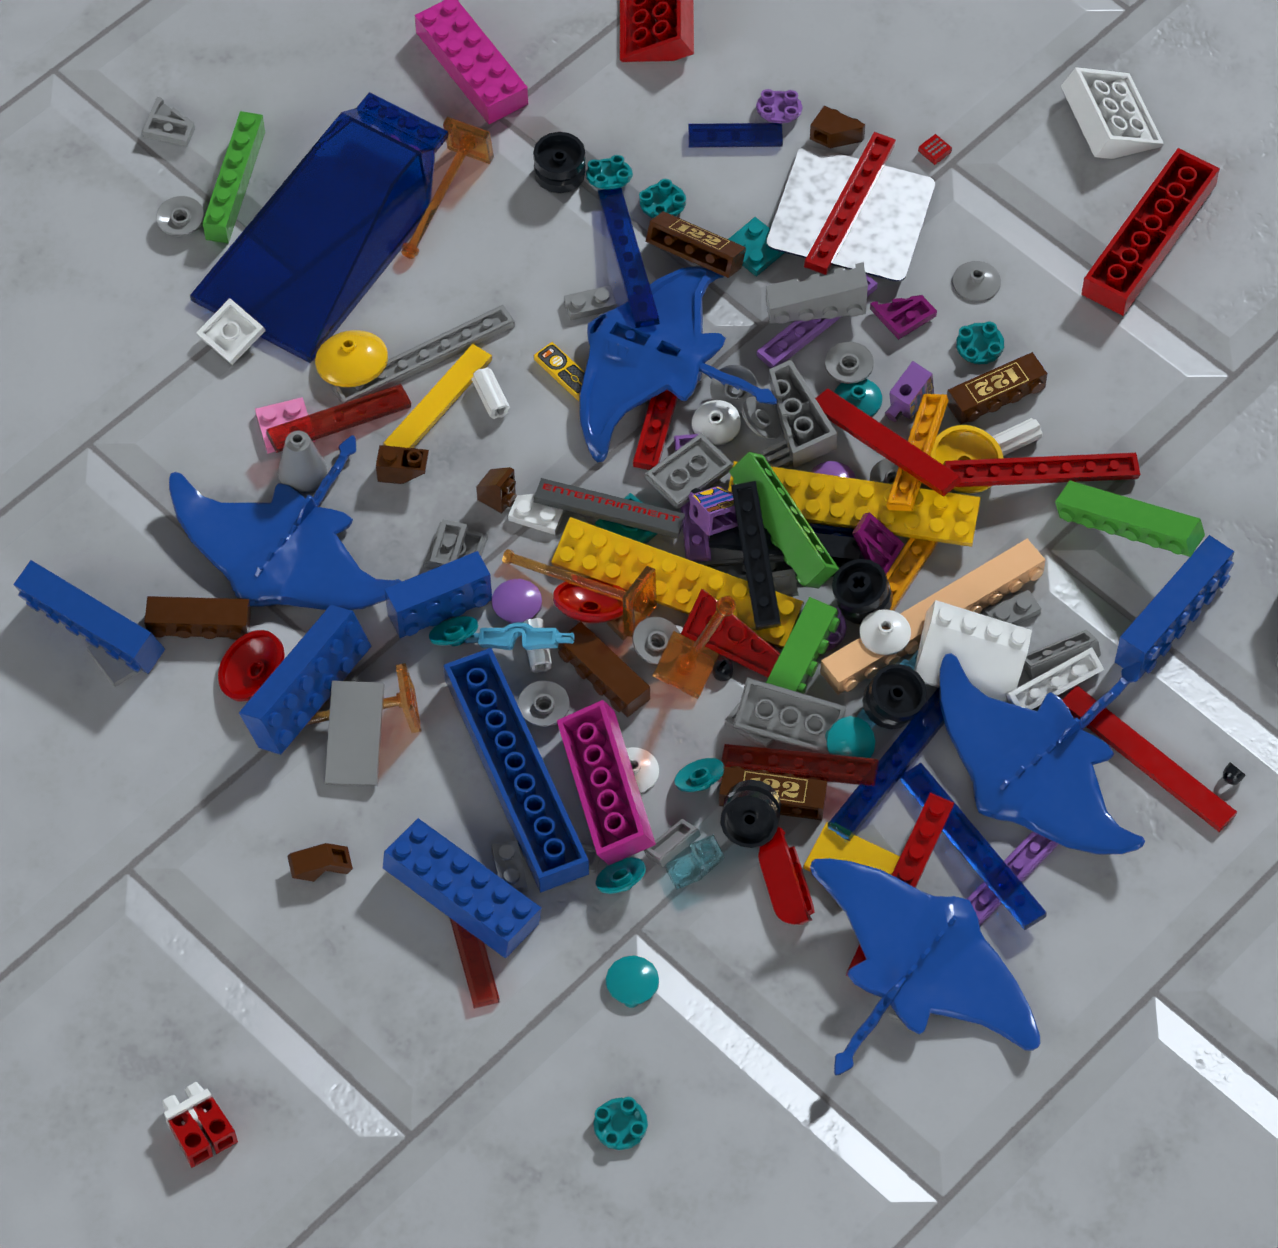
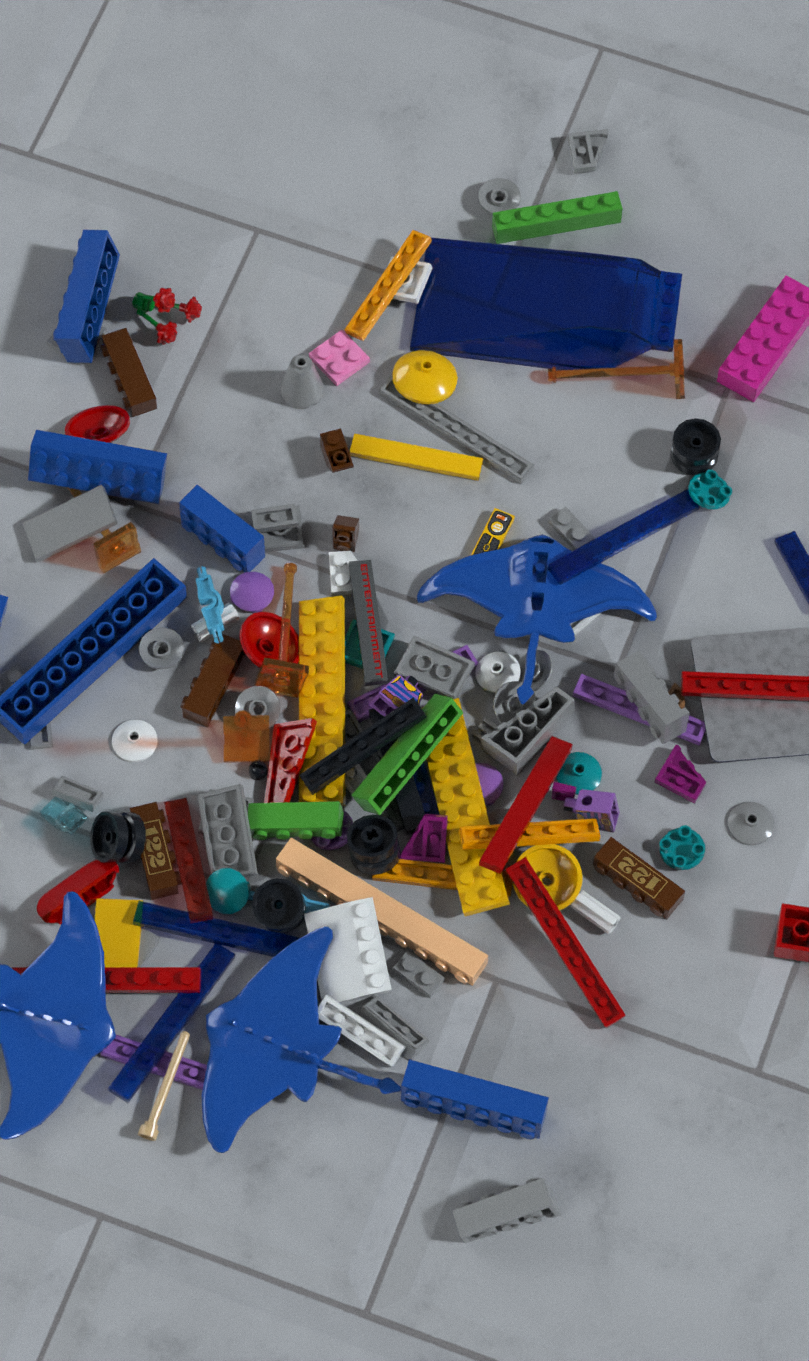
camera: 65 degrees right, 5 degrees up
(145, 541) = (164, 301): none -> red plant
(231, 346) = (388, 285): none -> light orange tile
(281, 547) = (221, 401): blue animal -> none
(342, 416) = (361, 392): clear red tile -> none
(453, 631) = (198, 556): teal dish -> none
(490, 393) = (440, 491): white axle -> none
(606, 782) = (103, 720): dark pink brick -> none
(620, 875) = (28, 766): teal dish -> none
(655, 430) = (460, 628): red plate -> none
(662, 197) = (703, 542): teal dish -> none
(695, 244) = (664, 583): reddish brown brick -> none
(699, 775) = (145, 788): teal dish -> none
(757, 254) = (689, 625): teal plate -> none
(851, 355) = (608, 741): light grey dish -> none
(879, 410) = (561, 791): none -> magenta tile
(885, 641) = (344, 885): white dish -> none
(1080, 908) = (149, 1129): none -> tan piece
(1130, 518) = (541, 1029): bright green brick -> none
(1152, 761) = (320, 1137): red tile -> none
(1232, 774) = (335, 1208): black hinge -> none

